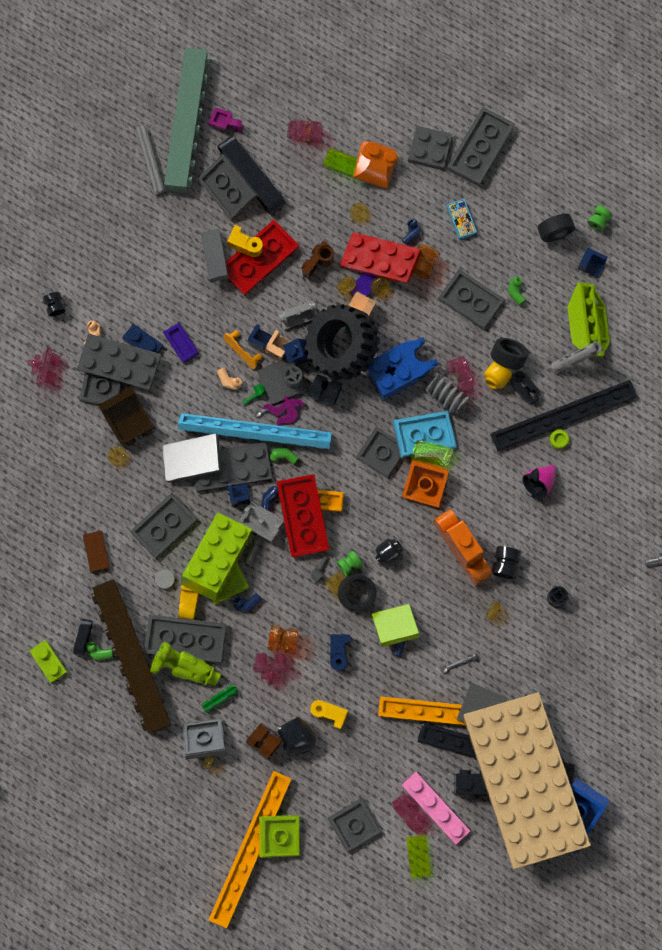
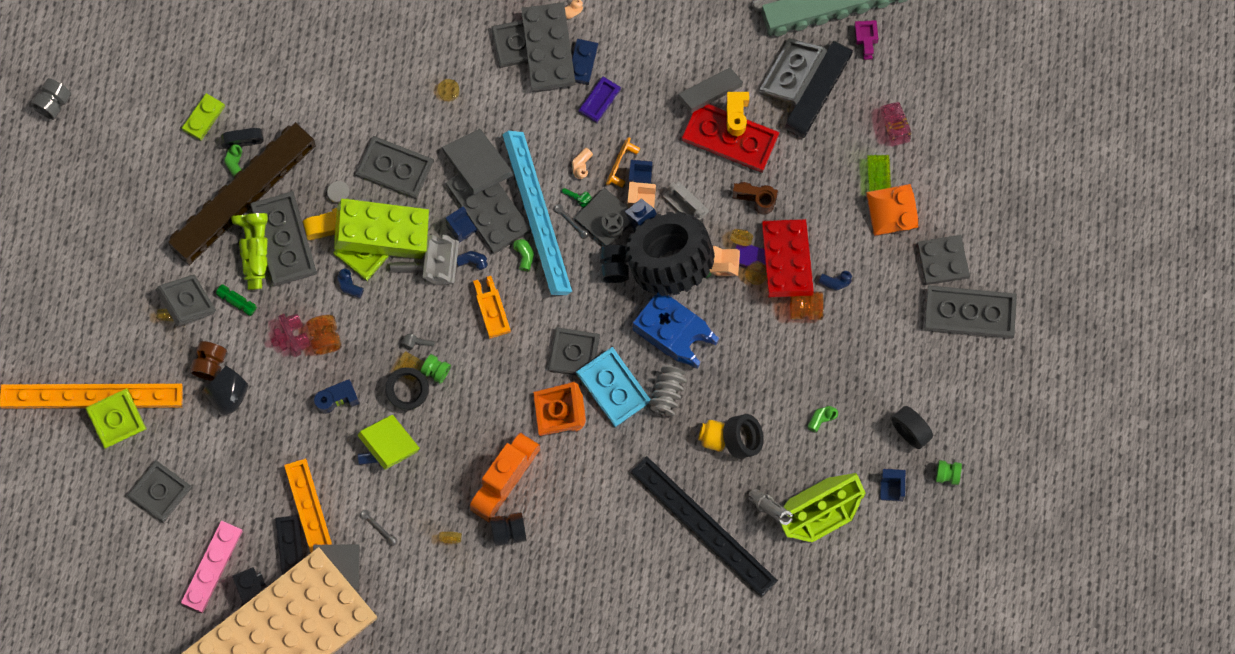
camera: 65 degrees right, 5 degrees down
(96, 551) = (338, 113): reddish brown tile -> none
(126, 417) = (493, 79): dark brown panel -> none
(289, 404) = (576, 241): magenta piece -> none
(302, 515) = (465, 297): red plate -> none
(322, 709) = (267, 415): yellow leg -> none
(359, 212) = (832, 217): clear yellow tile -> none
(389, 552) = (466, 404): black head -> none
(405, 805) = (201, 534): clear pink hinge -> none
(418, 856) = (153, 570): clear neon green tile -> none
(432, 453) = (594, 401): clear neon green tile -> none
(461, 219) = (877, 326): tile -> none
(462, 374) = (694, 403): clear pink leg -> none
(471, 299) = (790, 375): dark grey tile -> none
(522, 390) = (720, 474): black beam -> none
(543, 481) = (616, 529): hat -> none
(557, 597) = (492, 602): black wheel -> none
(559, 439) = (674, 532): lime tile -> none

